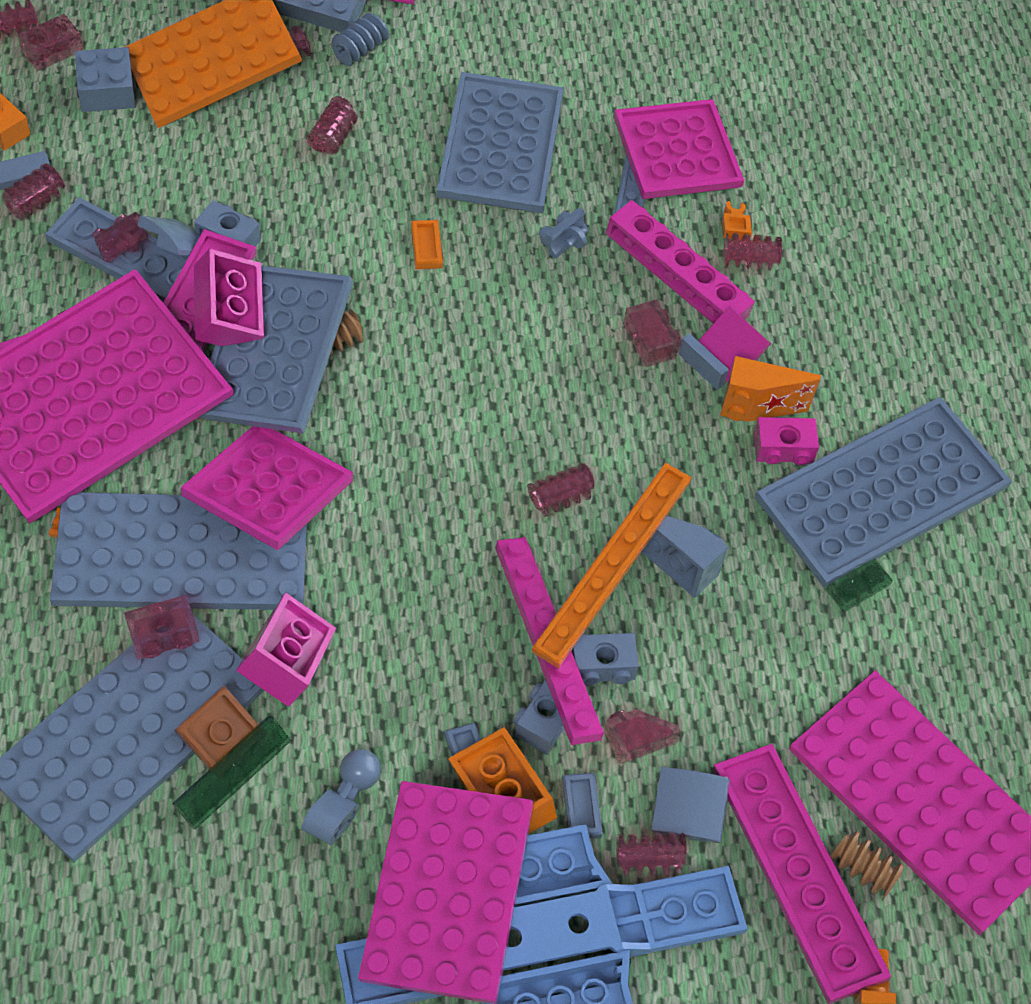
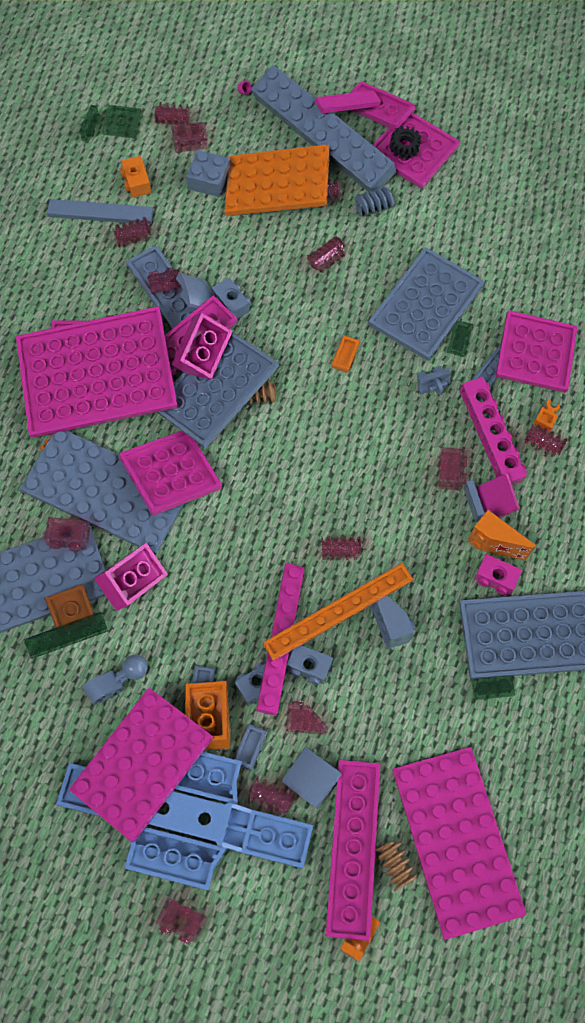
camera: 30 degrees right, 10 degrees up
(568, 170) = (459, 338): none -> clear green tile

